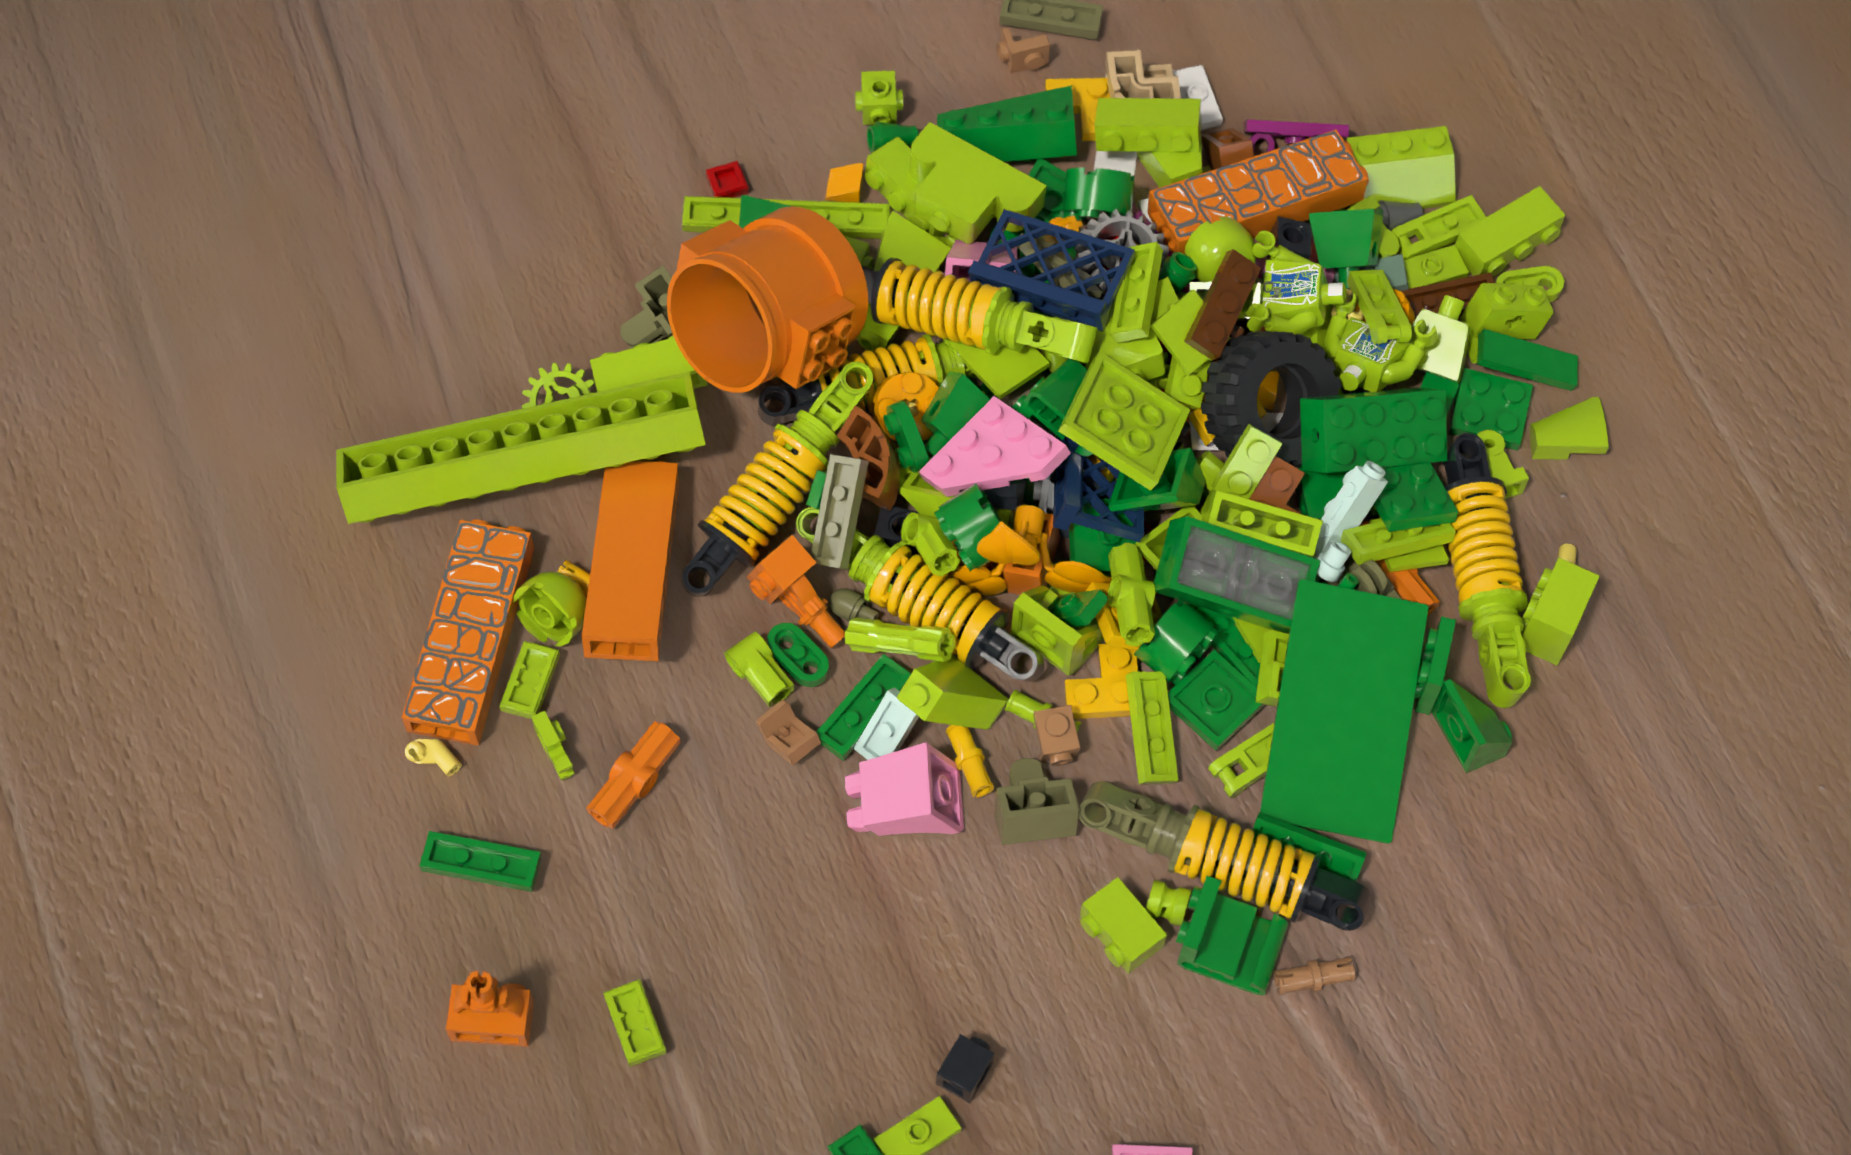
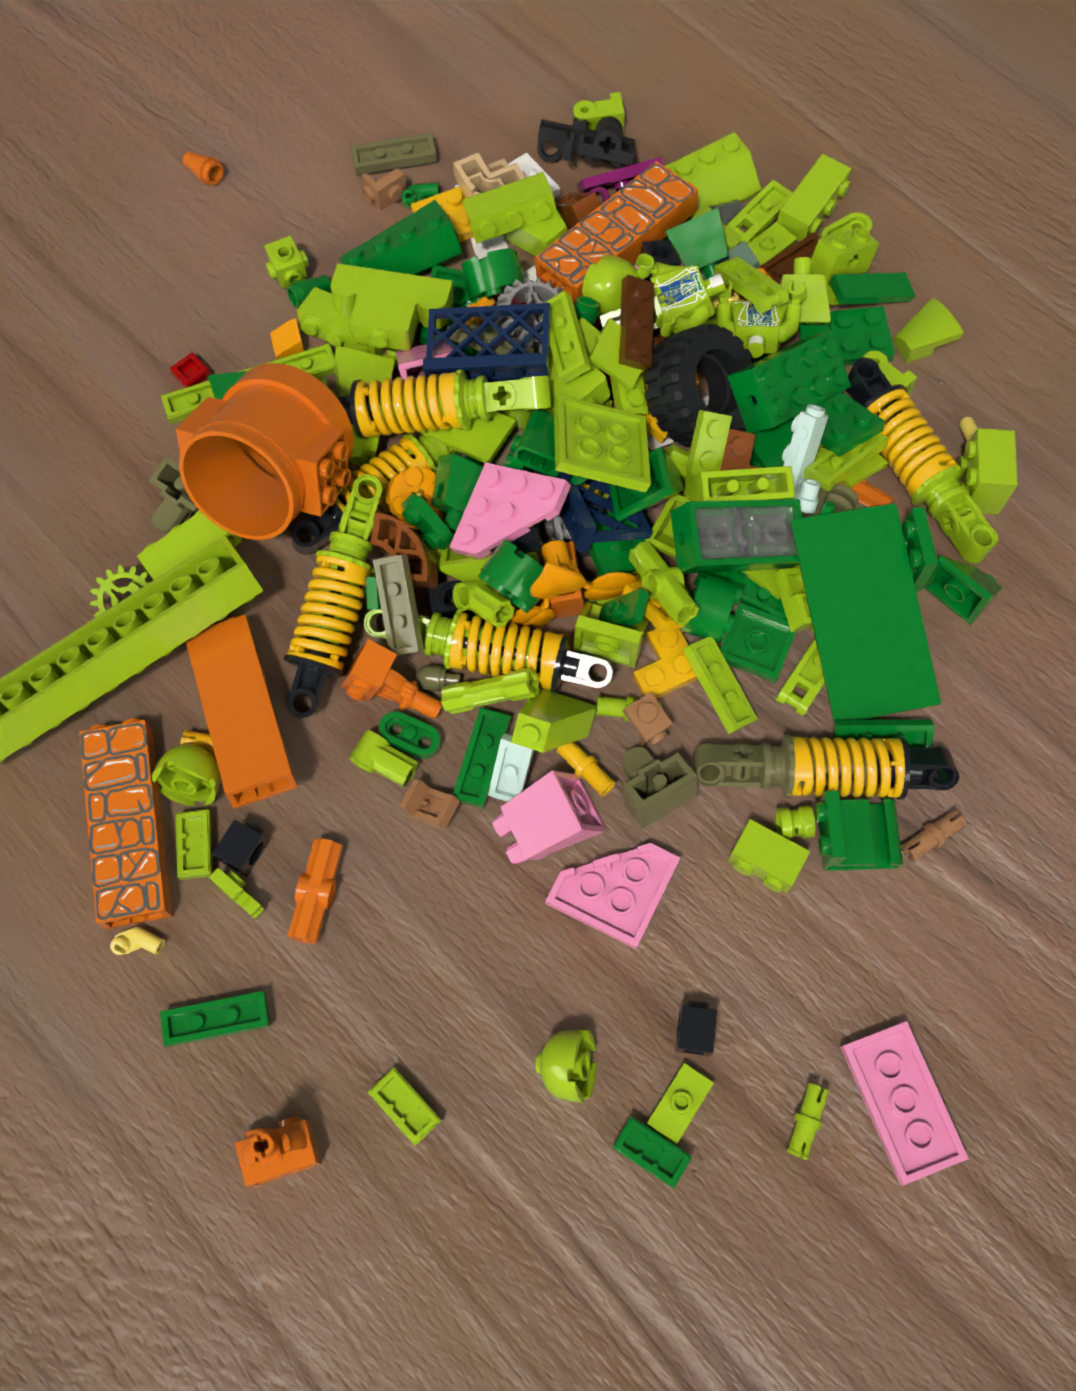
camera: 20 degrees left, 5 degrees up
(576, 701) = (241, 846): none -> black brick
(817, 1046) = (567, 1065): none -> lime cylinder
(945, 898) = (616, 891): none -> bright pink plate
(1061, 68) = (418, 192): none -> green arm
(1291, 86) = (587, 142): none -> black plate
(1304, 51) = (598, 109): none -> lime leg

